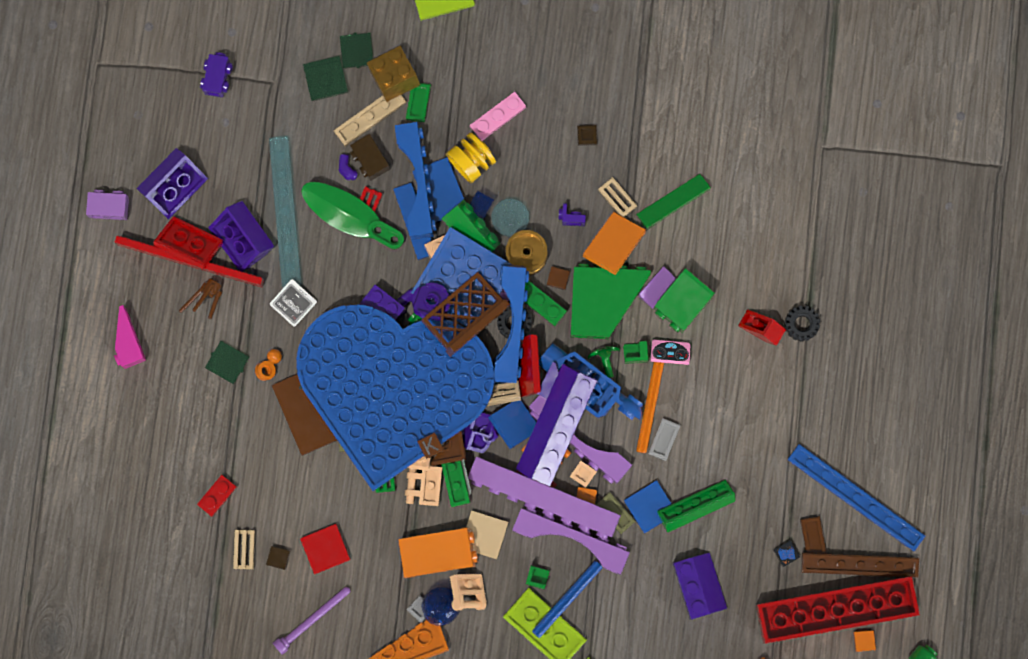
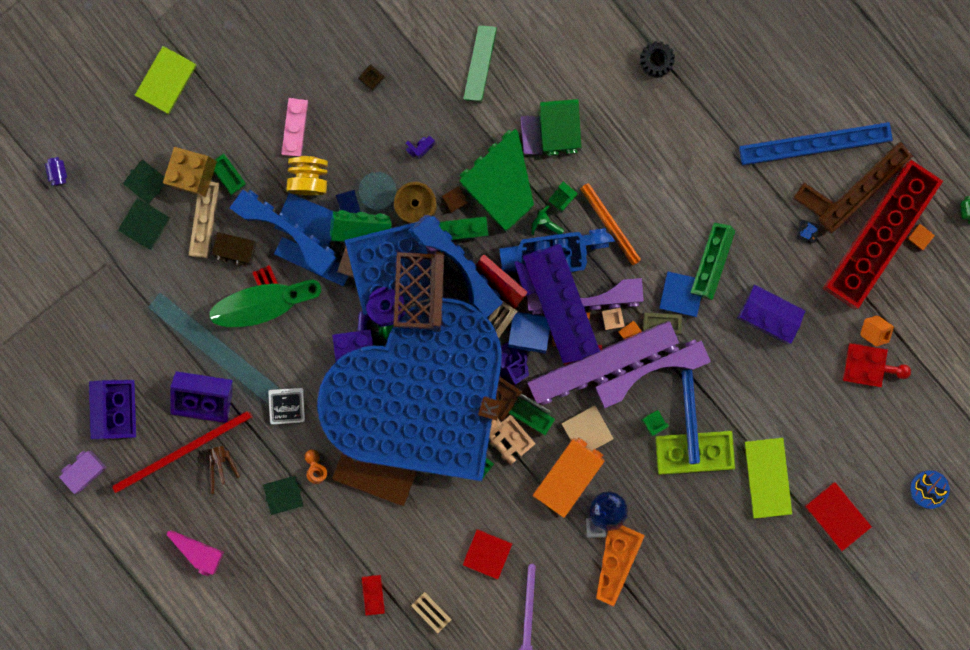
camera: 50 degrees left, 5 degrees up
(188, 242) = (168, 439): red tile -> none
(217, 70) = (60, 296): dark purple brick -> none
(278, 558) = (460, 594): dark brown tile -> none
(345, 170) = (225, 275): dark purple arm -> none
(468, 585) = (612, 479): light nougat plate -> none
(614, 243) = (470, 135): orange tile -> none
(622, 192) = (433, 100): tan tile -> none
(664, 439) = (643, 237): light grey tile -> none
(670, 352) = (586, 172): slope -> none
(762, 327) = (632, 90): red slope -> none

